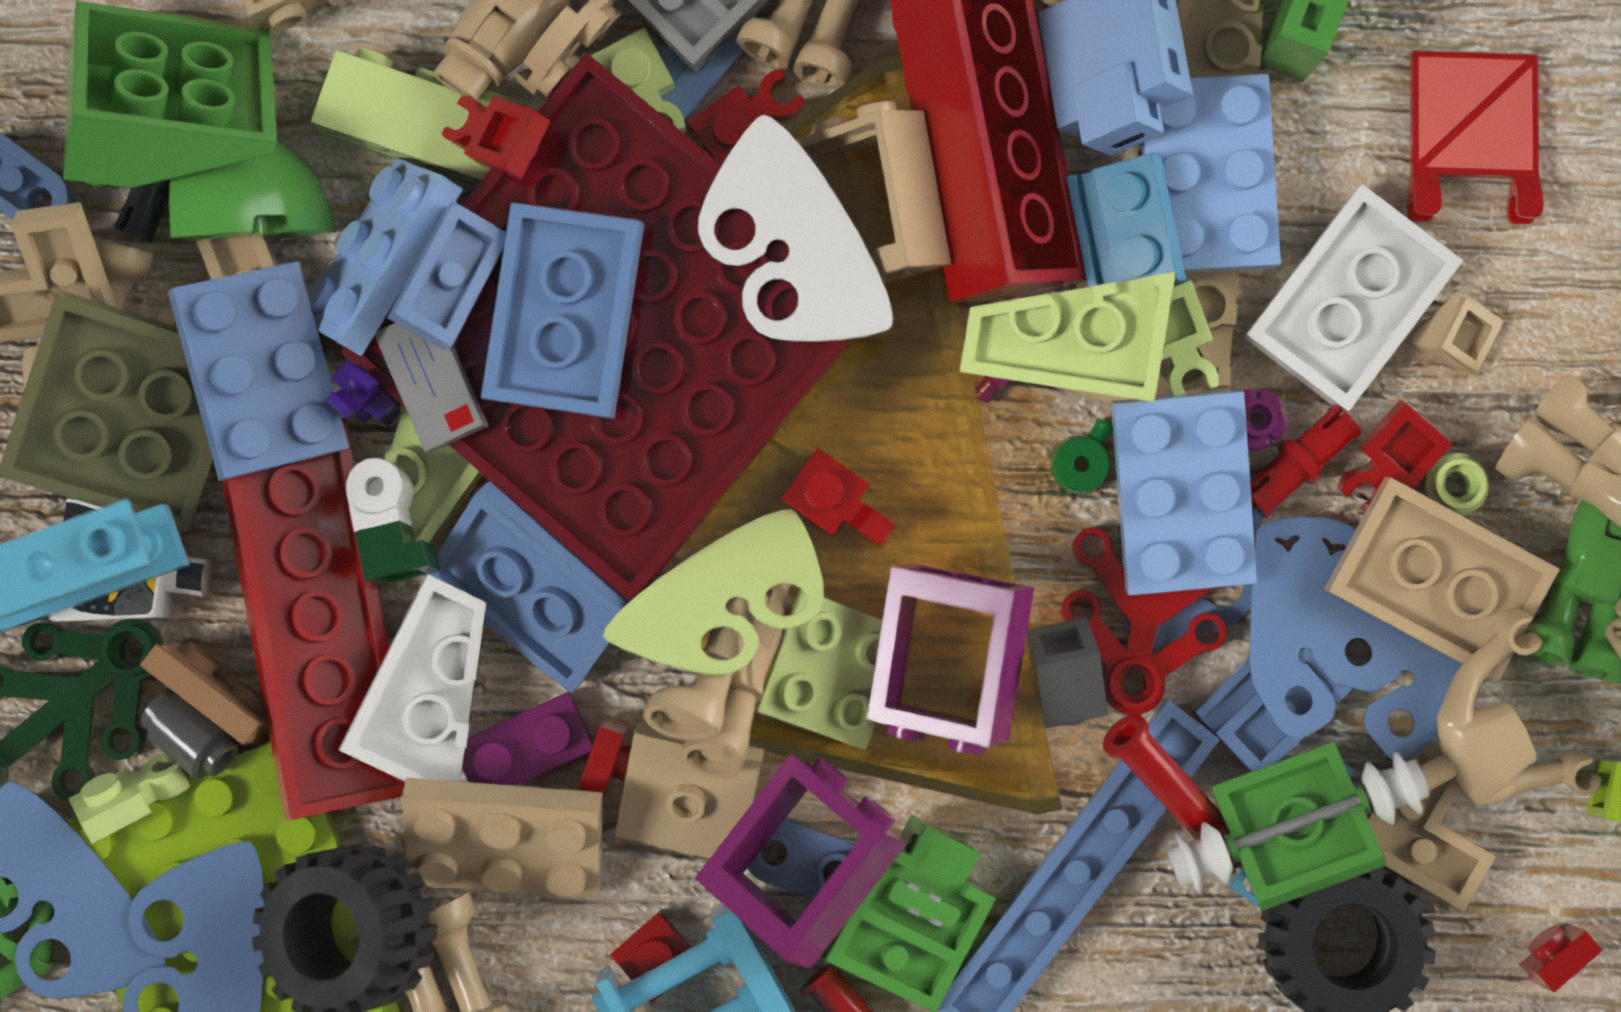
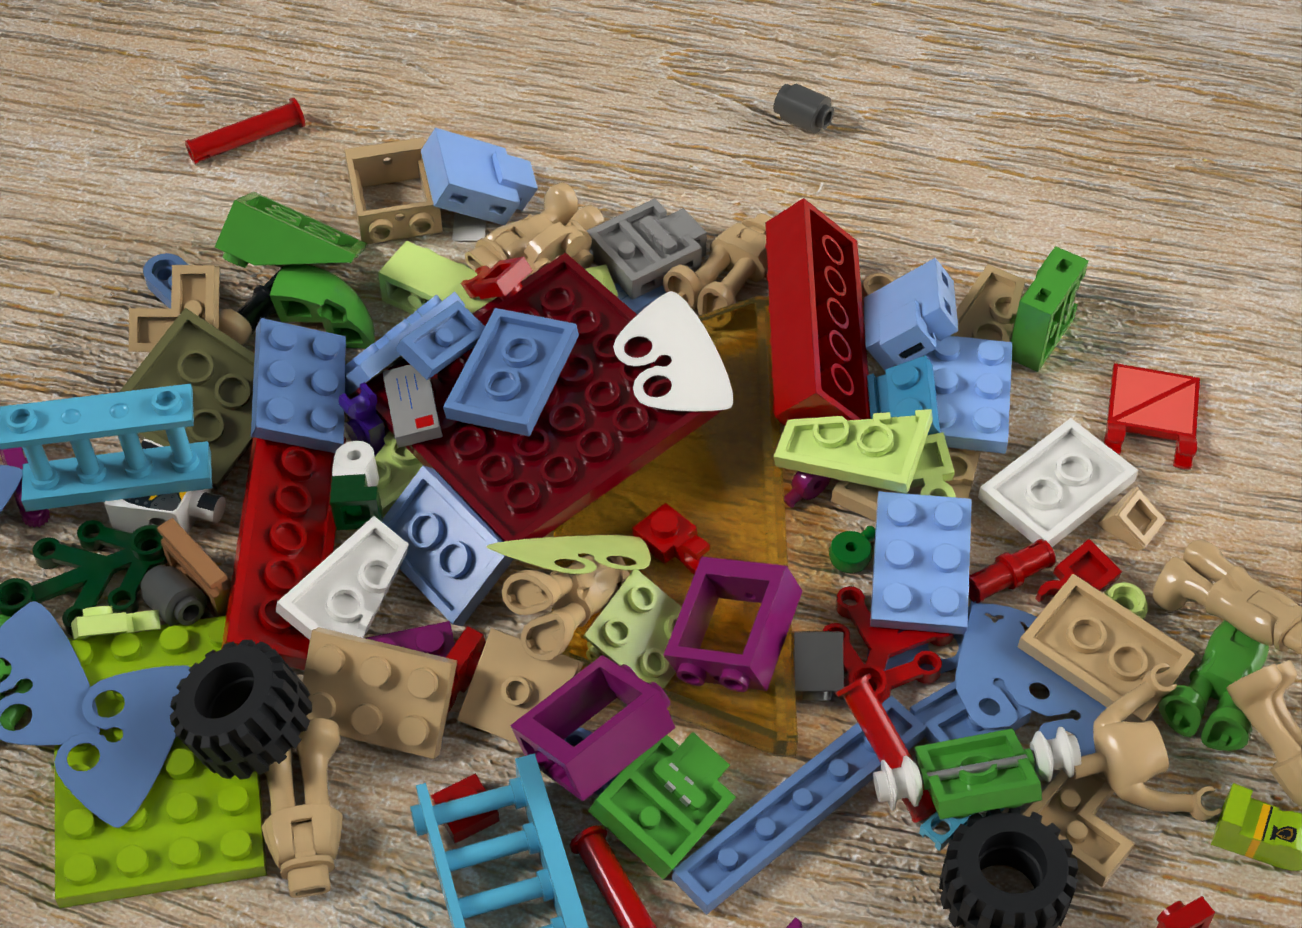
camera: 10 degrees right, 35 degrees down
(908, 180) = (758, 375): tan window -> none
(1273, 421) = (984, 553): magenta plate -> none

